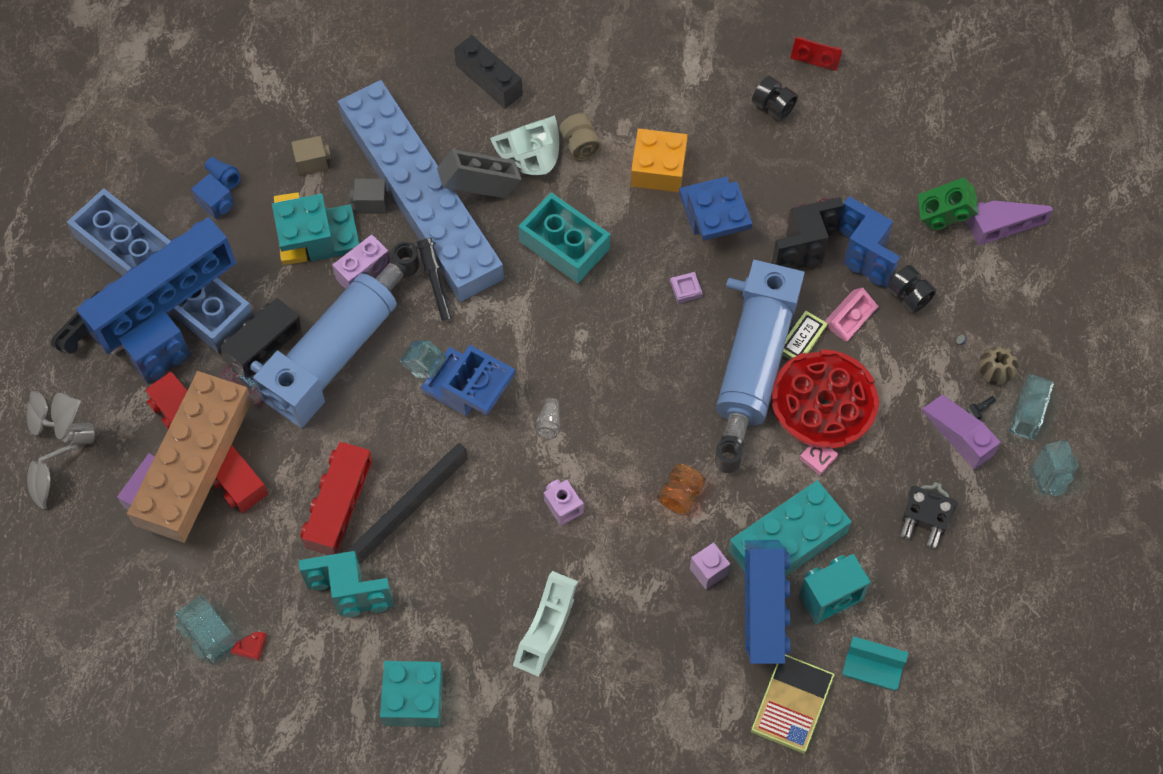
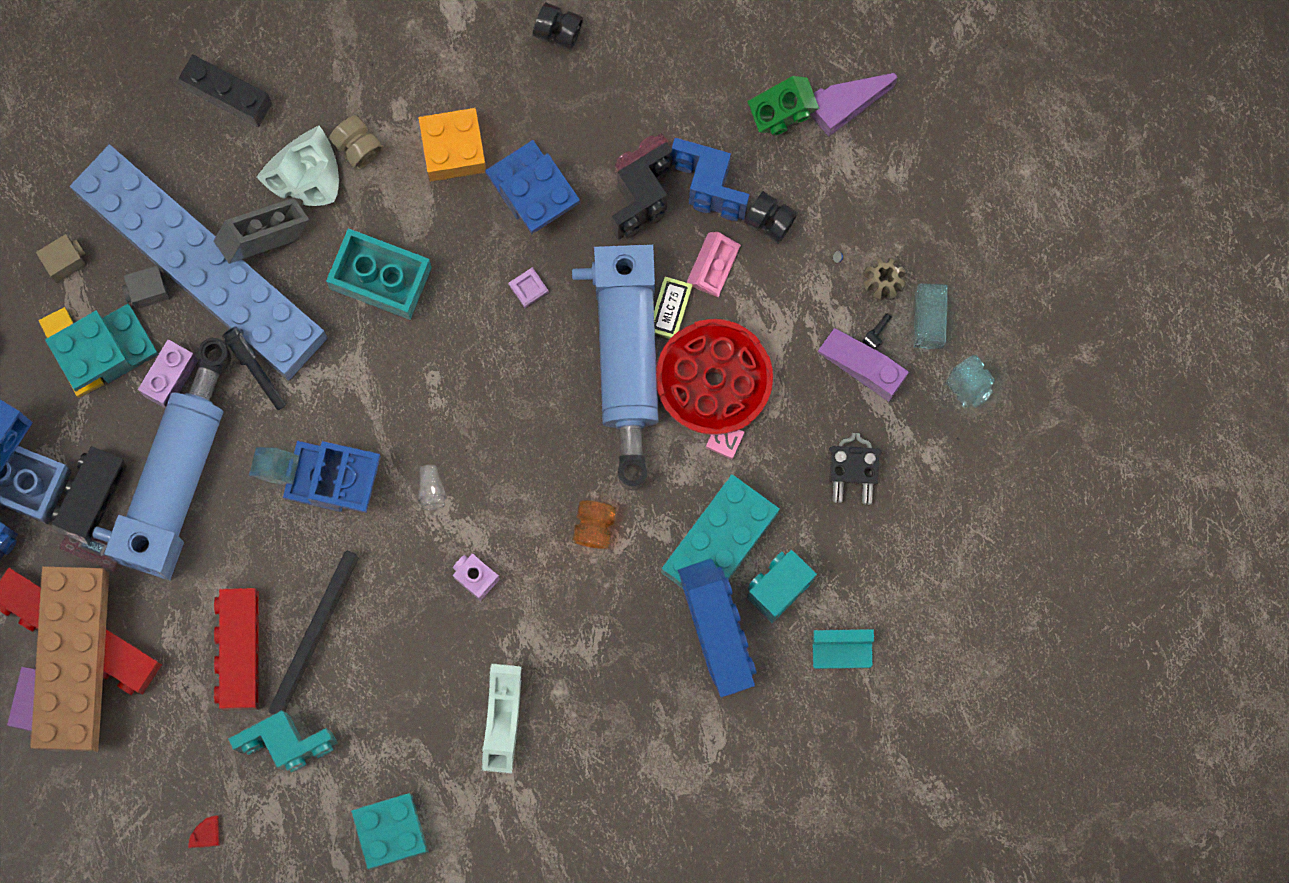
camera: 20 degrees left, 15 degrees up
(205, 629) = (153, 833): clear light blue brick -> none
(709, 566) = (648, 599): lavender brick -> none
(792, 703) = (773, 715): tile -> none

